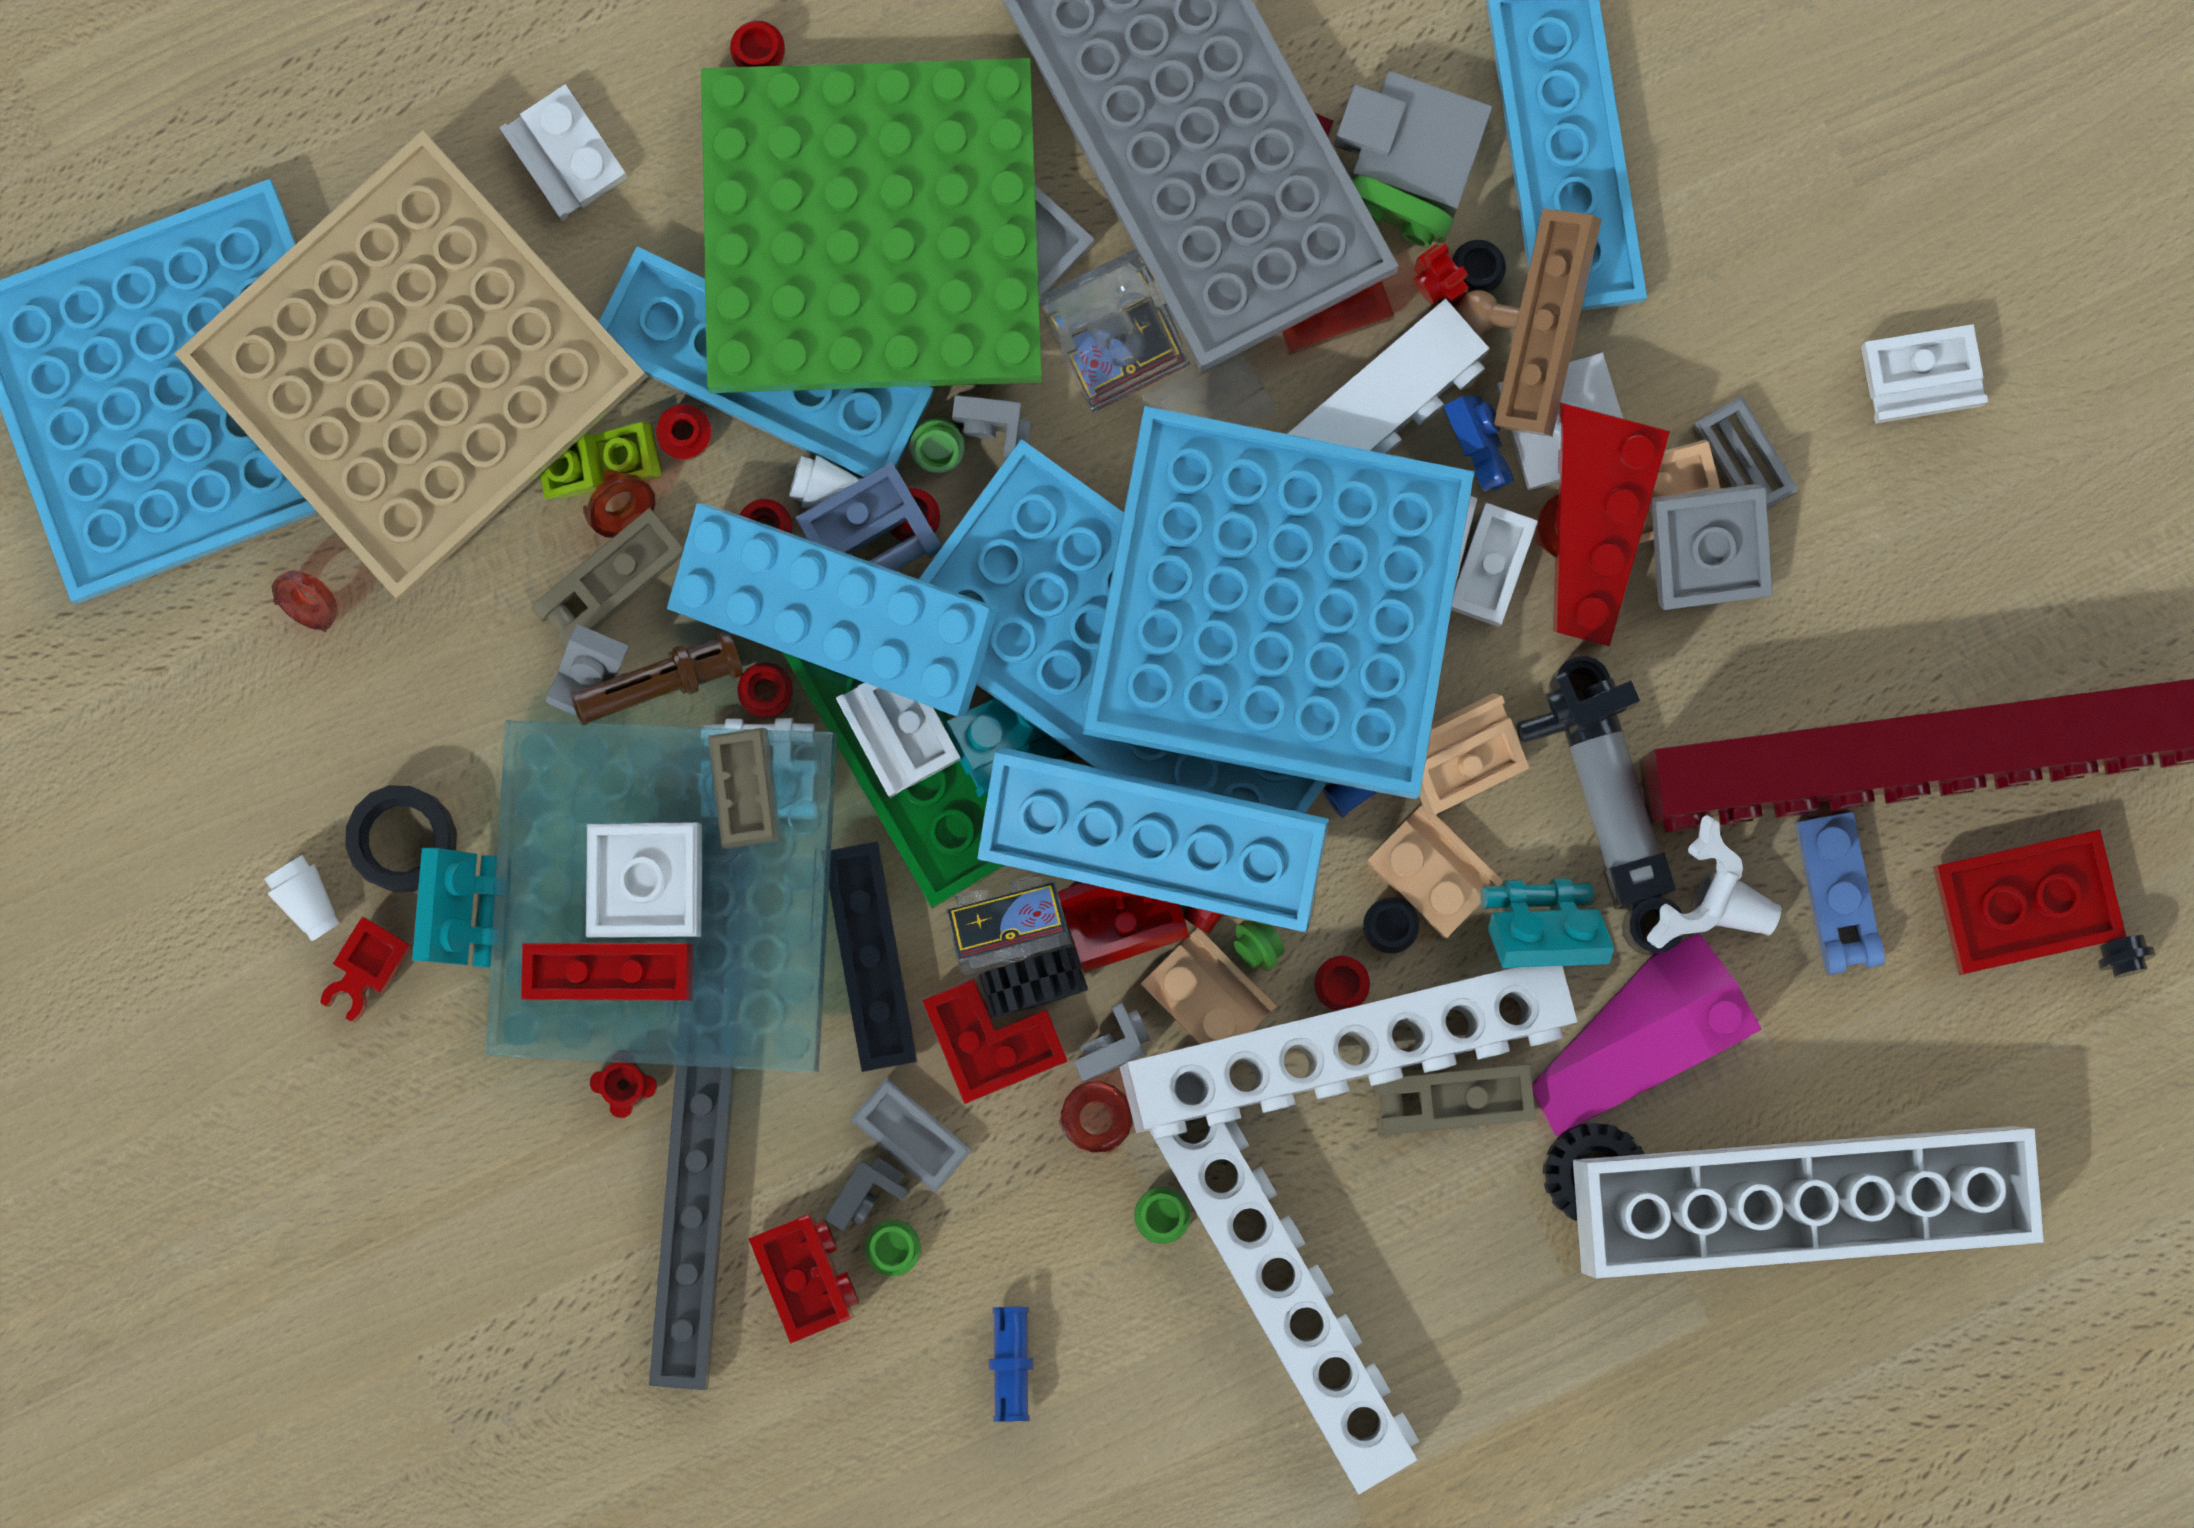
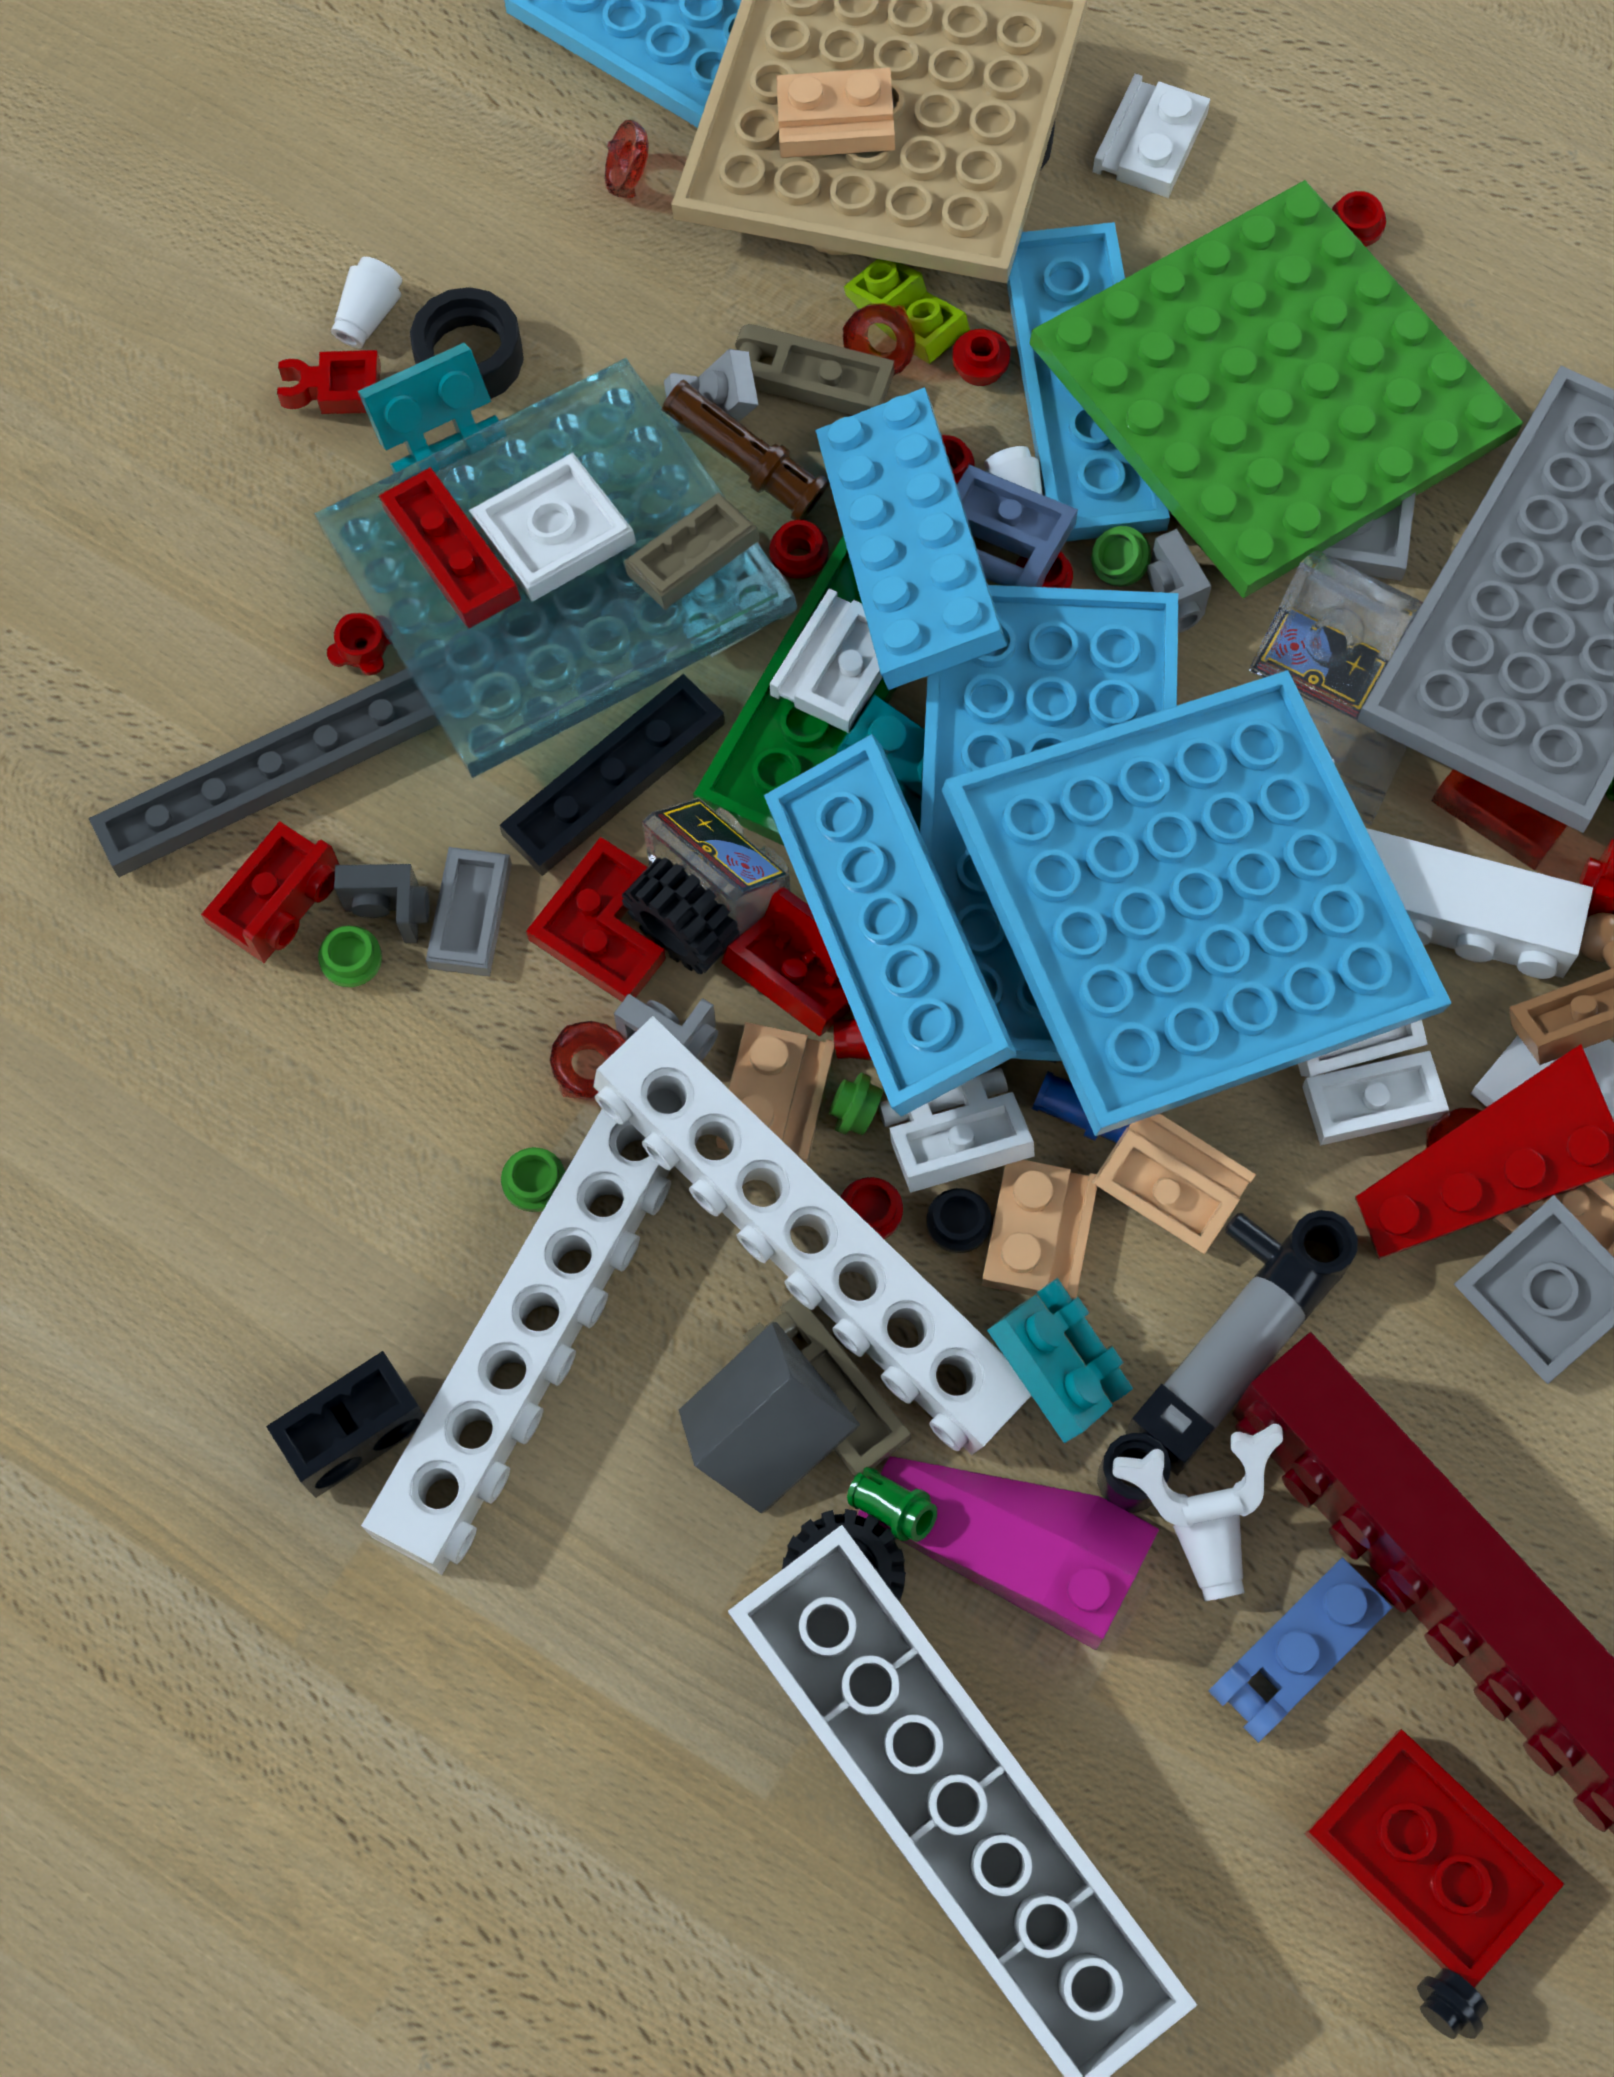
camera: 60 degrees right, 15 degrees down
(402, 412) = (835, 112): none -> light nougat plate
(1010, 1364) = (300, 1125): blue pin -> none
(1275, 1461) = (347, 1424): none -> black brick
(1343, 888) = (963, 1139): none -> white plate
(1453, 1162) = (764, 1420): none -> dark grey slope
(1478, 438) = (1485, 1009): blue plate -> none
(1573, 1110) = (905, 1511): none -> green pin
(1600, 702) = (1311, 1259): black bracket -> none

